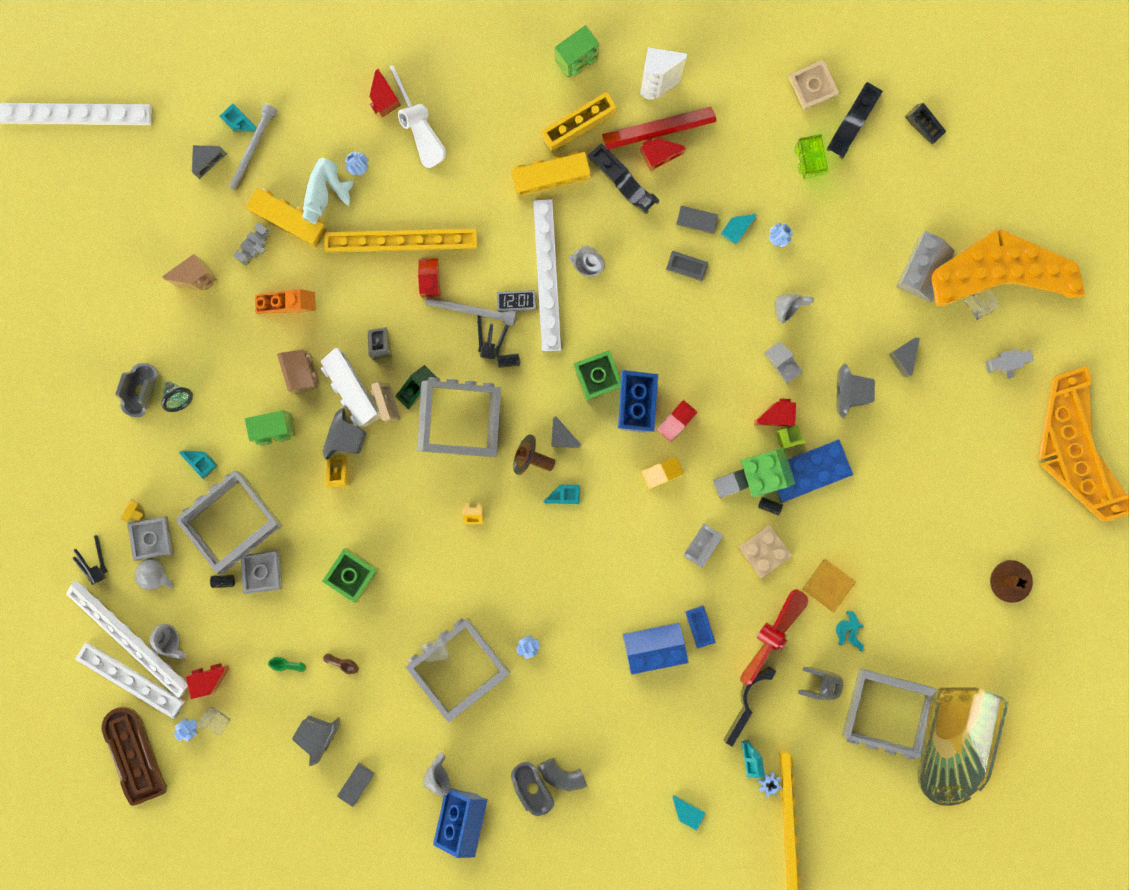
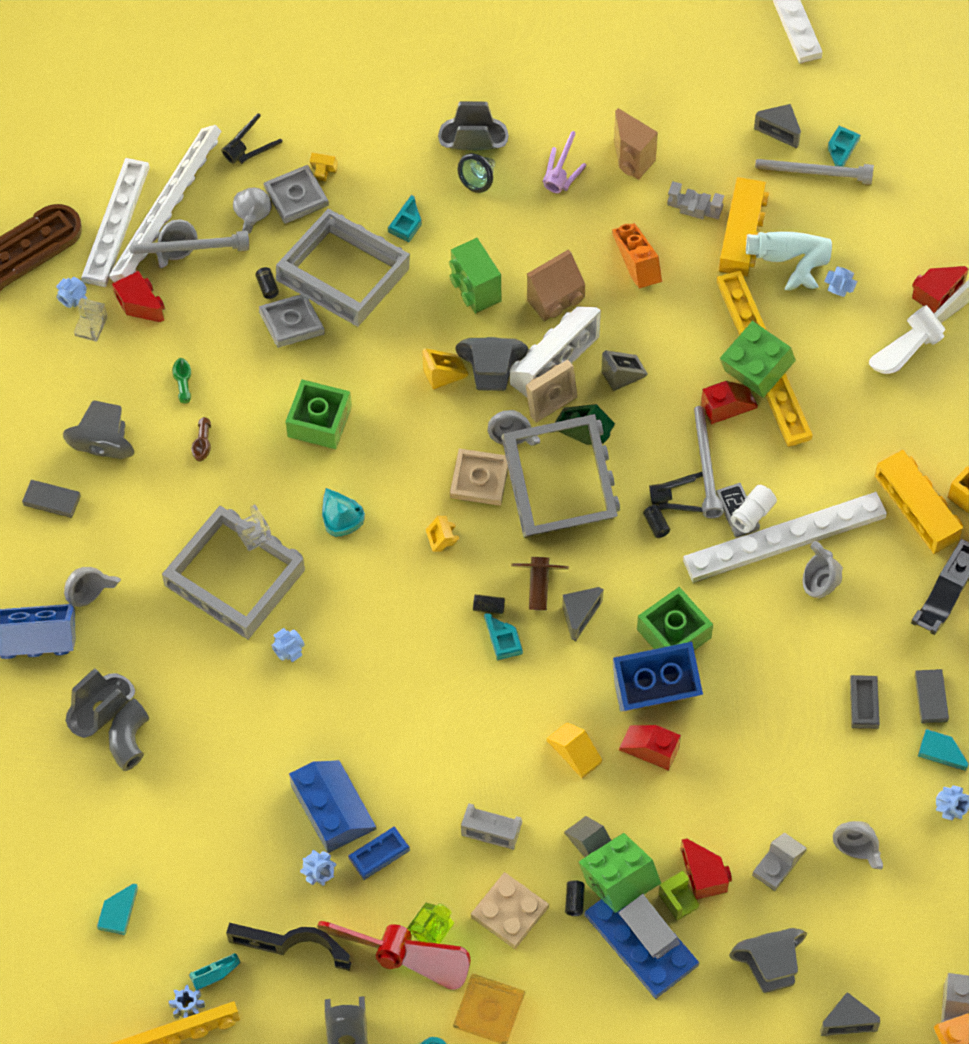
camera: 75 degrees right, 25 degrees down
(179, 594) = (237, 241): none -> light grey piece
(200, 341) = (556, 179): none -> lavender plant
(403, 439) = (508, 422): none -> light grey hat
(407, 246) = (757, 359): none -> bright green brick
(432, 581) = (341, 514): none -> teal piece
(435, 474) = (479, 477): none -> tan plate
(524, 290) = (755, 507): none -> white piece
(537, 497) = (498, 602): none -> black piece
(700, 671) = (318, 867): none -> light blue gear
(764, 607) = (431, 923): none -> clear neon green brick
(812, 465) = (649, 927): none -> light grey hinge

